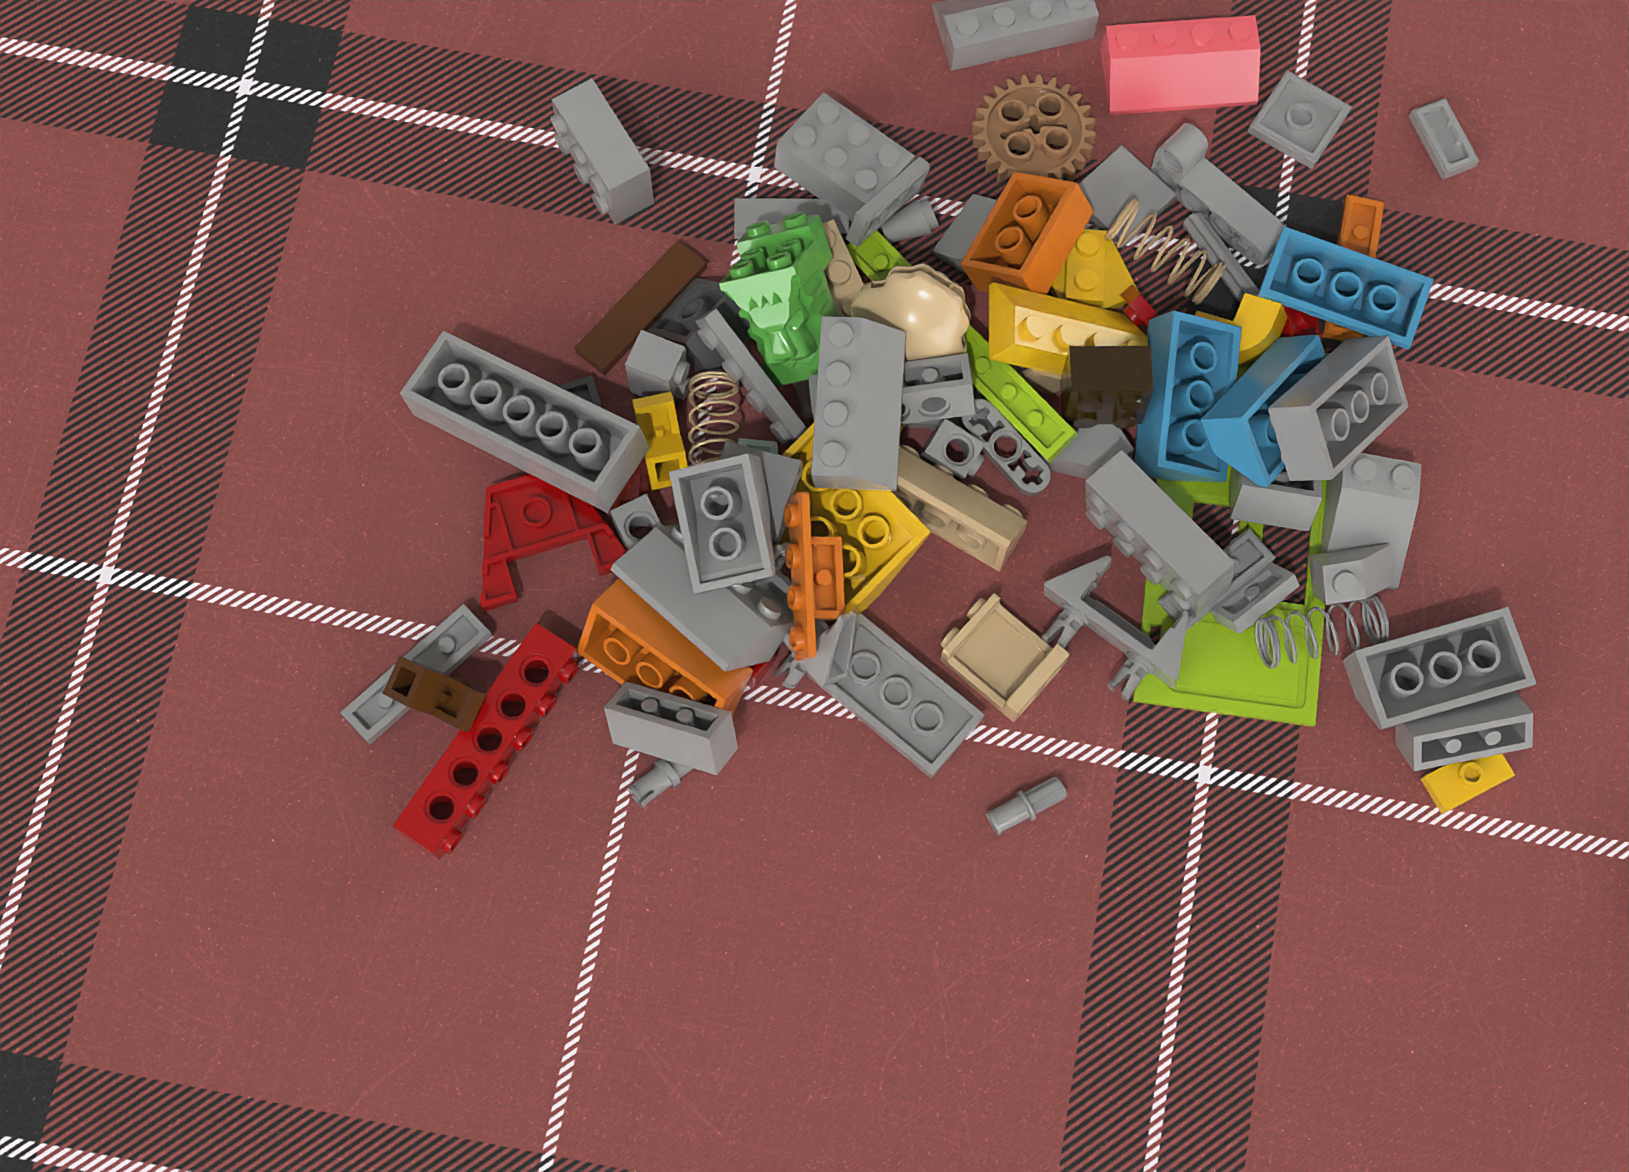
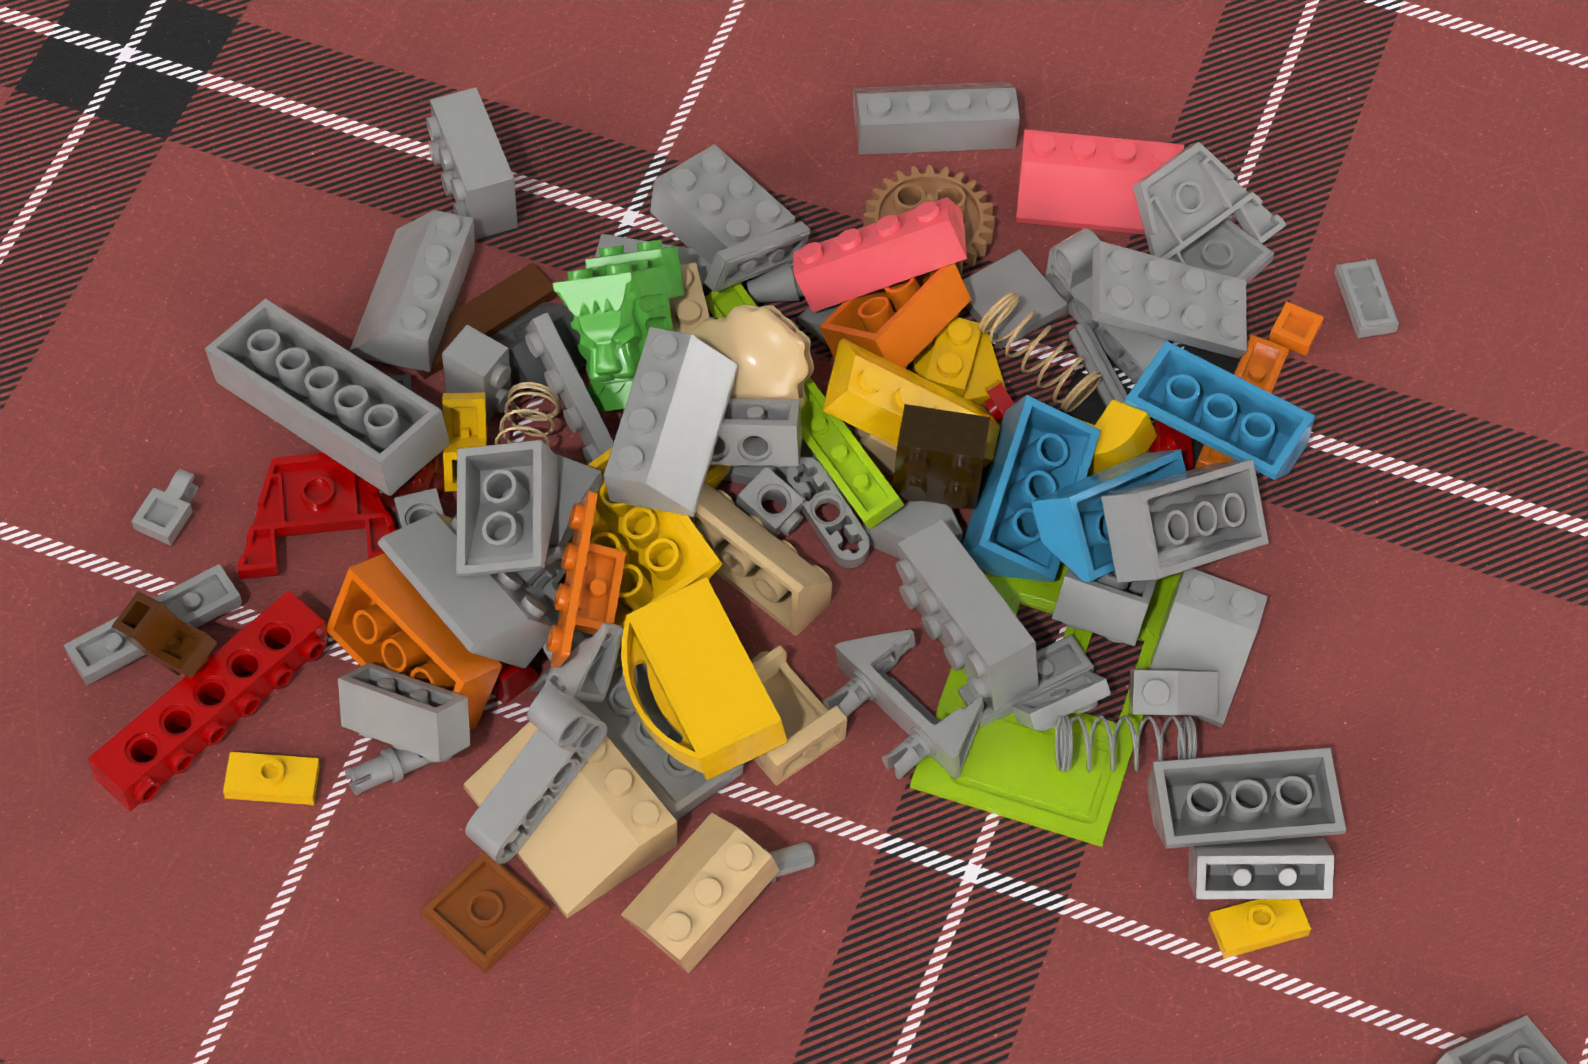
camera: 10 degrees right, 15 degrees down
(399, 559) = (167, 512): none -> light grey plate
(561, 804) = (271, 778): none -> yellow plate
(577, 291) = (416, 291): none -> light grey slope
(783, 897) = (484, 912): none -> dark orange tile
(825, 736) = (538, 775): none -> light grey beam
(838, 783) = (595, 832): none -> tan slope
(934, 650) = (699, 682): none -> yellow piece
(971, 846) = (701, 891): none -> tan slope
(1006, 185) = (880, 254): none -> coral slope
(1267, 77) = (1193, 196): none -> light grey wing
(1273, 179) = (1169, 300): none -> light grey plate
(1387, 181) = (1296, 328): none -> orange plate

